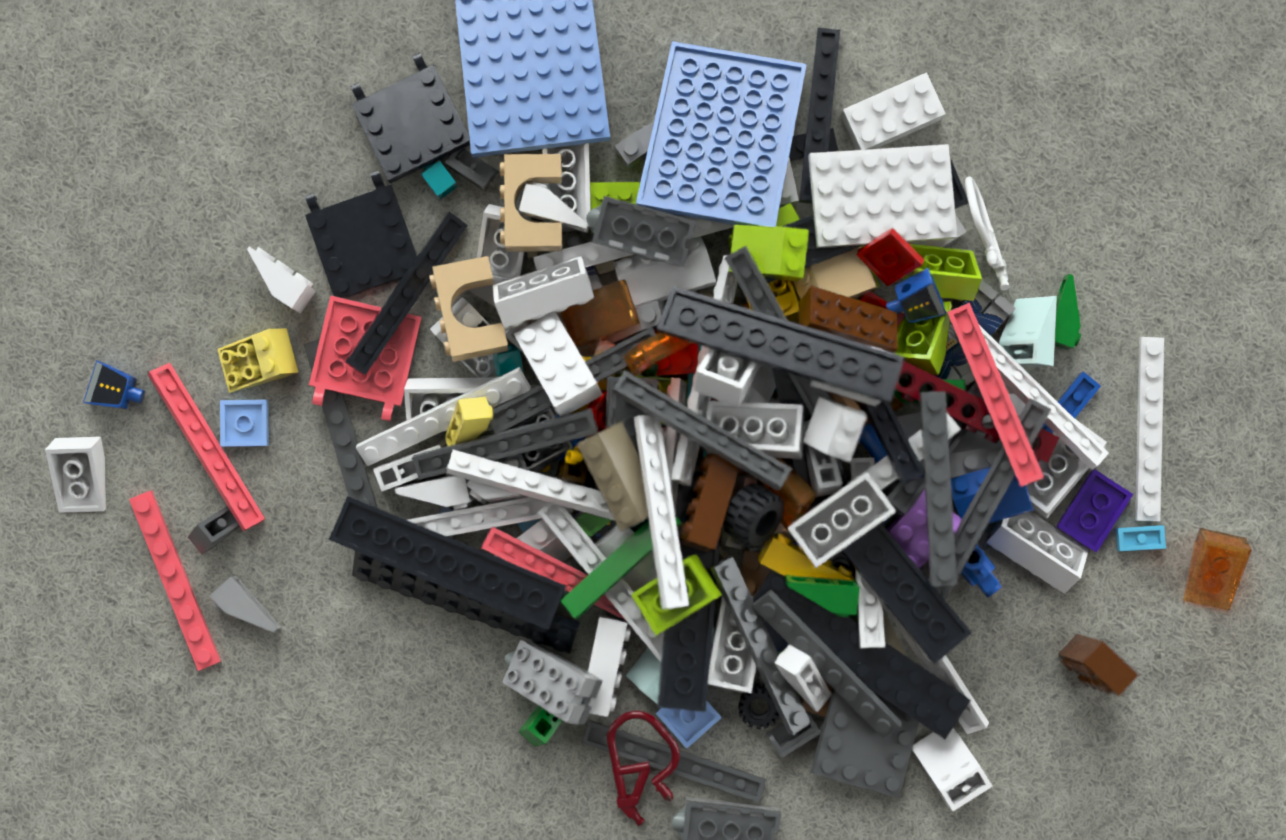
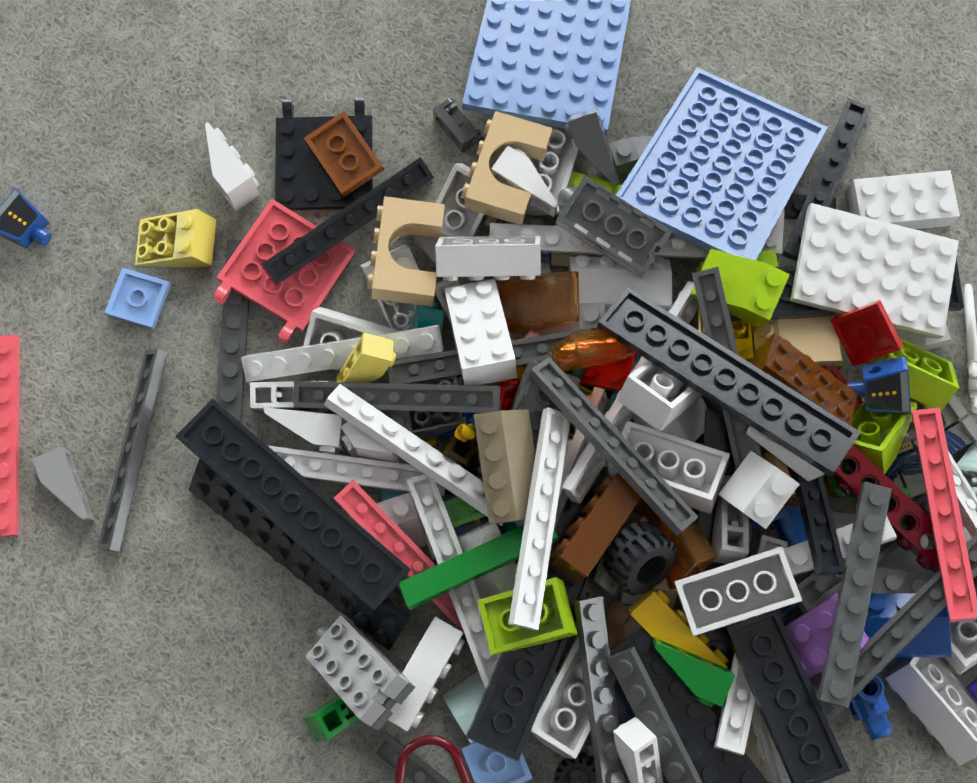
camera: 20 degrees right, 10 degrees down
(206, 446) = (90, 311): coral plate -> none
(213, 530) = (66, 394): dark grey slope -> none
(291, 557) = (131, 453): none -> dark grey plate
(380, 232) = (344, 153): none -> dark orange plate
(411, 122) = (412, 63): plate -> none
(439, 179) = (421, 125): teal brick -> none
(599, 152) = (591, 140): none -> dark grey slope

